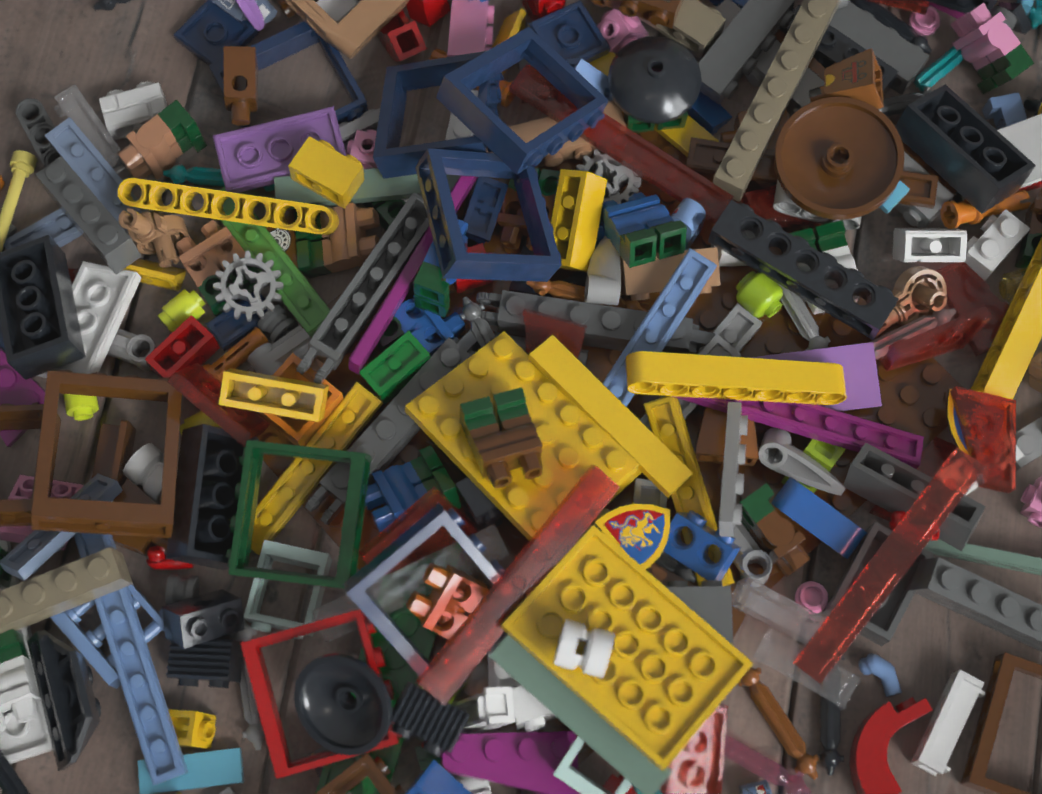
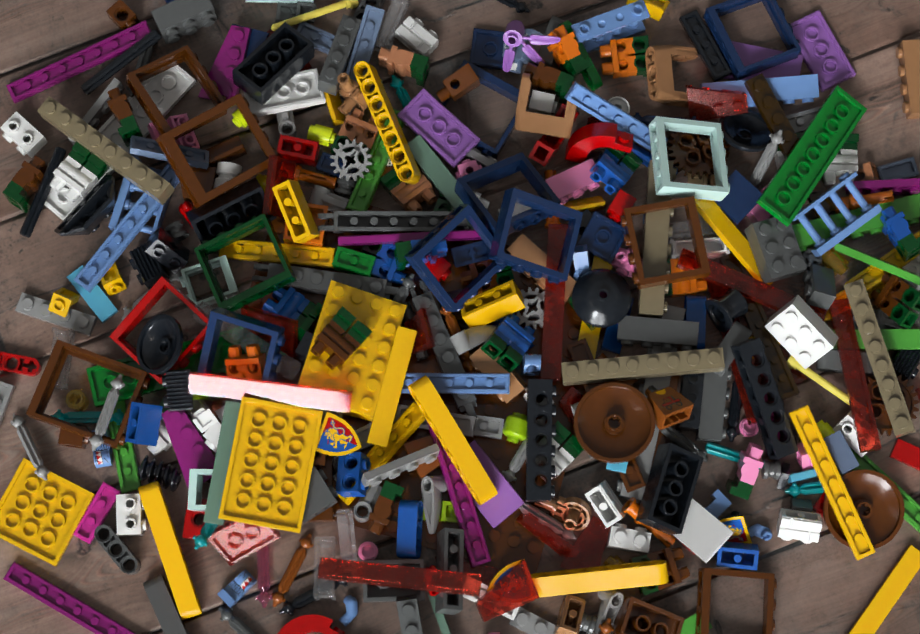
camera: 55 degrees right, 5 degrees up
(327, 171) = (437, 160): yellow brick -> none
(596, 652) = (252, 449): white wheel -> none

